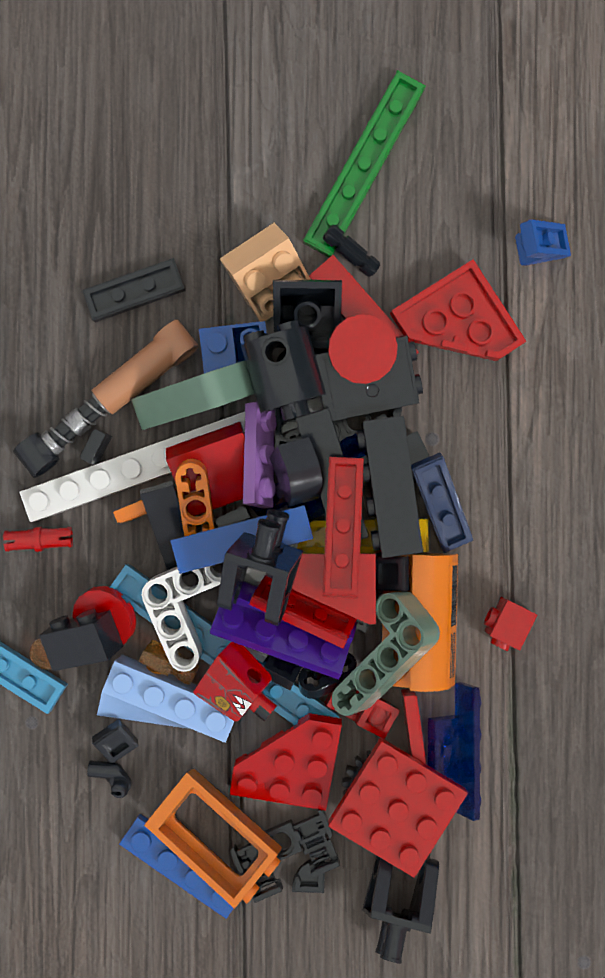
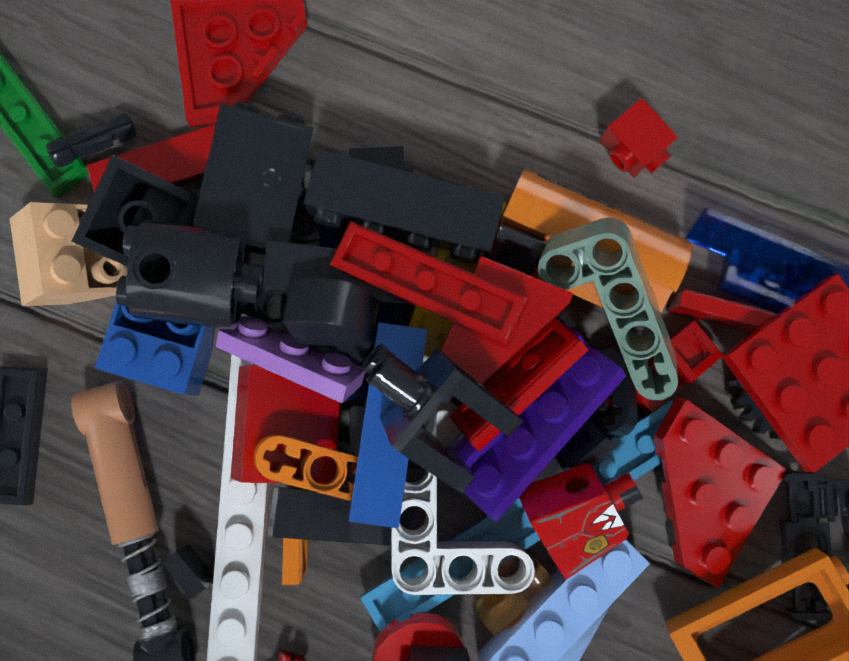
camera: 65 degrees left, 5 degrees down
(193, 395) = (173, 410): sand green beam -> none
(362, 348) = (209, 163): red tile -> none
(441, 502) = (453, 157): dark blue tile -> none

